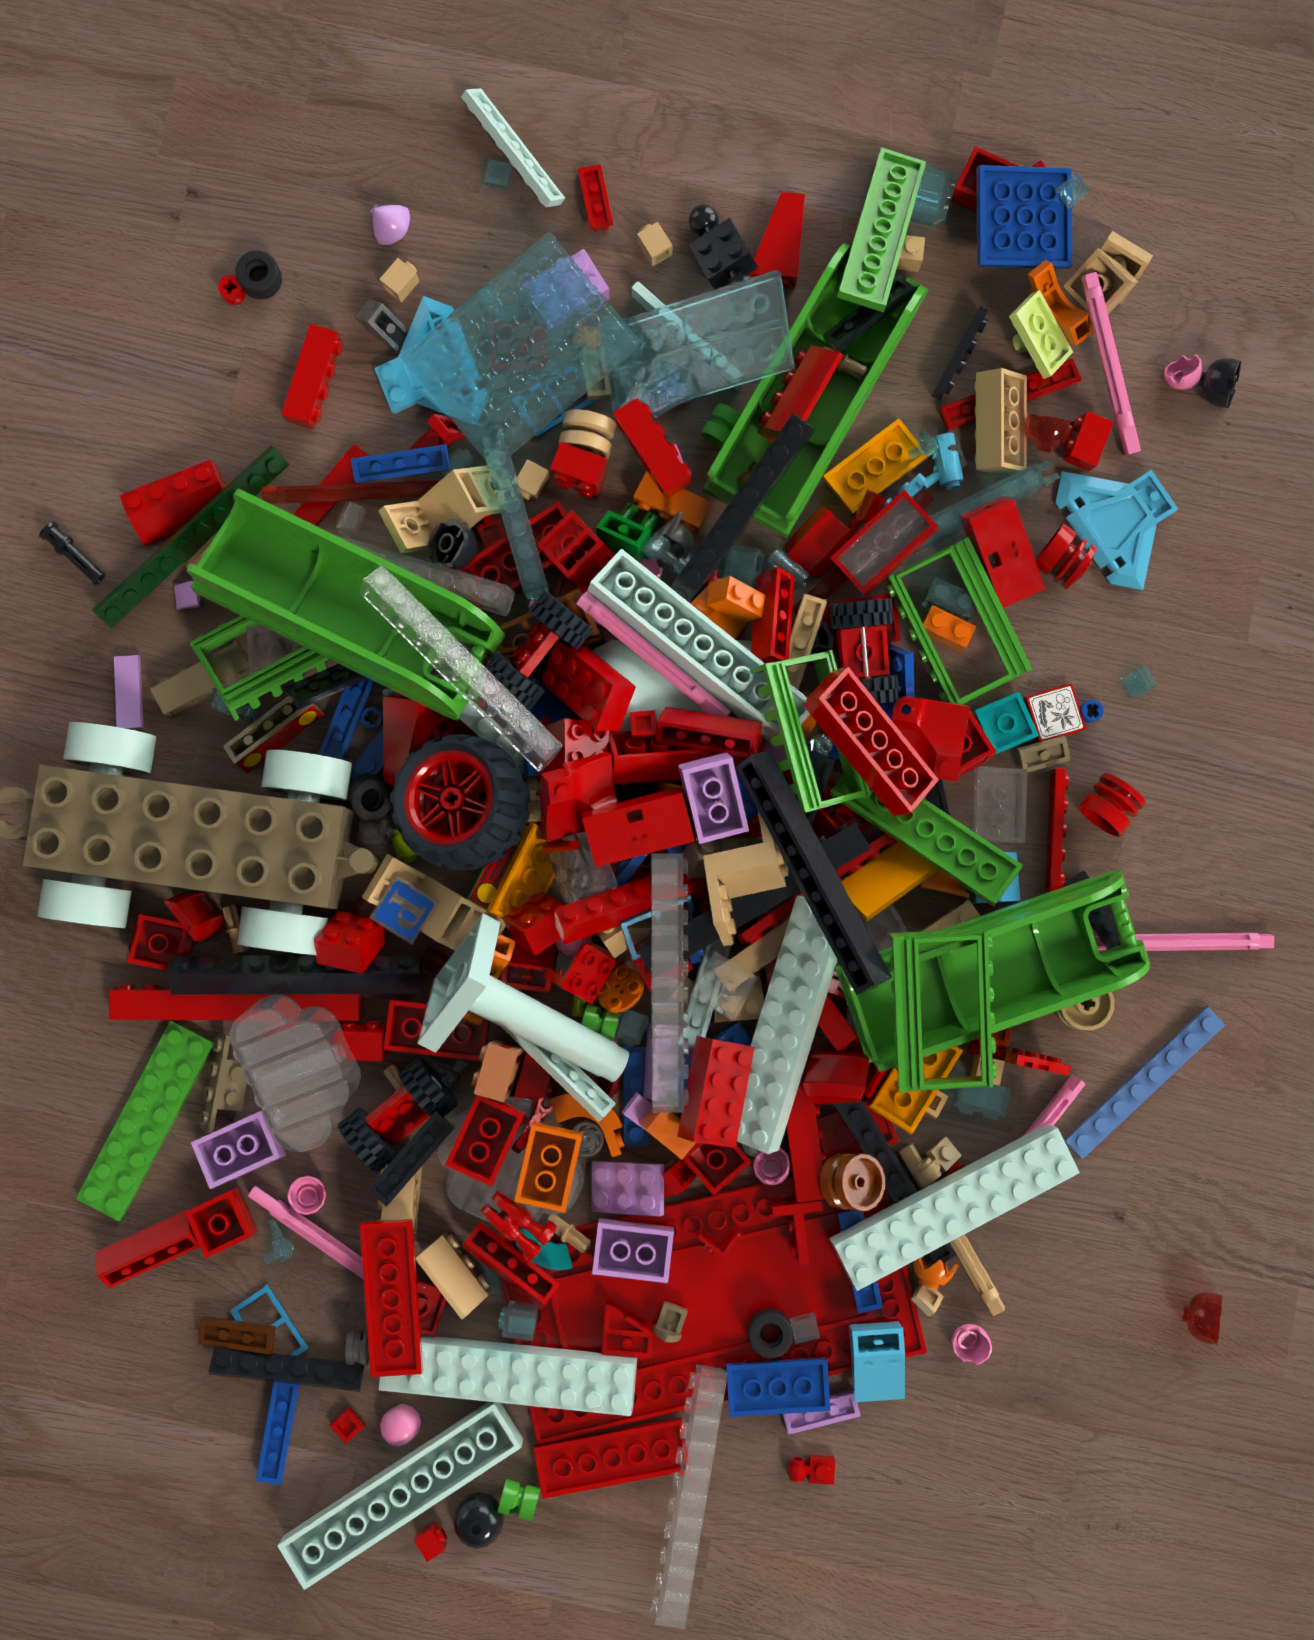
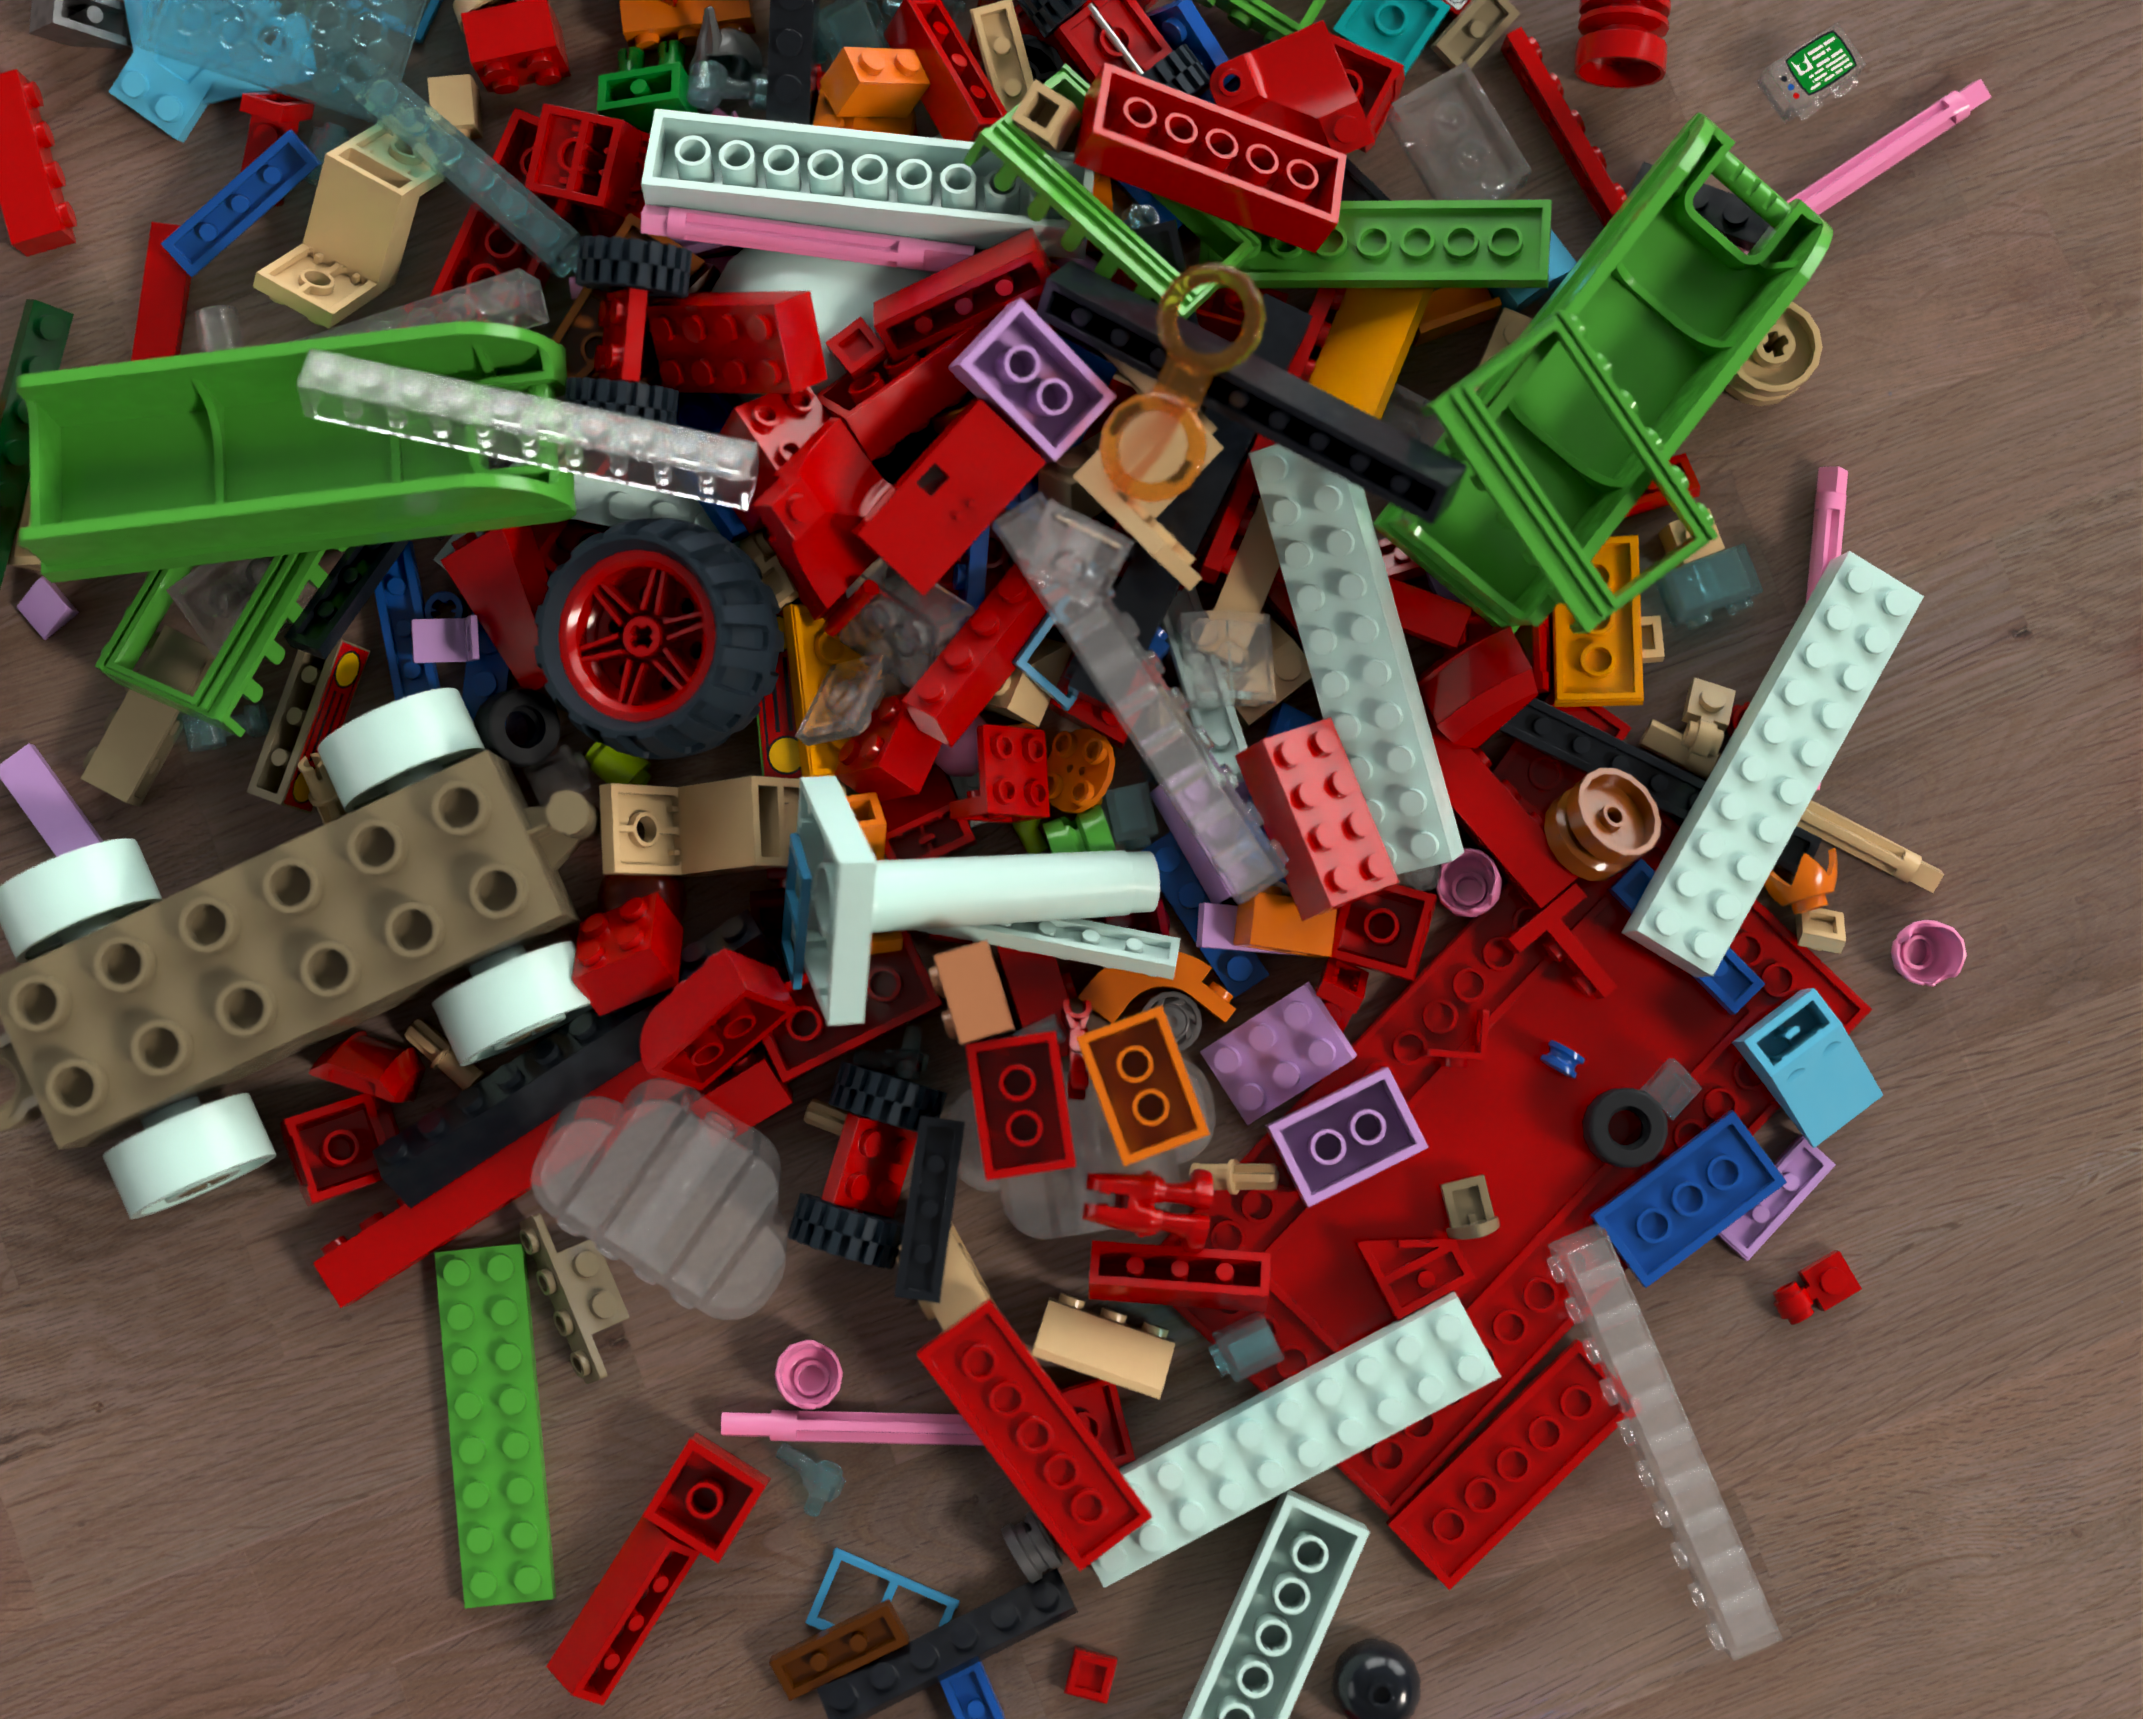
camera: 30 degrees left, 0 degrees up
(237, 1150) = (661, 1373): lavender brick -> none
(256, 770) = (322, 791): none -> tan axle
(344, 492) = (197, 291): clear red piece -> none
(362, 733) = (445, 640): none -> lavender bracket
(368, 1000) = (713, 1019): none -> red brick
(400, 1425) = (1169, 1623): bright pink hair -> none
(404, 909) = (678, 852): piece -> none
(440, 974) = (796, 911): none -> dark azure window
(452, 545) = (397, 266): black cylinder -> none
(491, 530) = (440, 219): red plate -> none
(518, 1500) = (1416, 1615): bright green wheel -> none
(530, 887) = (846, 699): none -> clear hinge
(552, 1255) = (1230, 1224): teal tile -> none
(677, 896) = (1074, 554): none -> clear slope
(761, 1280) = (1562, 1059): none -> blue bush
(781, 848) = (1182, 382): none -> clear orange bar
(803, 673) = (1047, 116): none -> tan brick
(1027, 1059) = (1740, 484): red wing -> none
(1144, 1082) = (1931, 412): medium blue plate -> none
(1193, 880) = (1811, 74): none -> brick

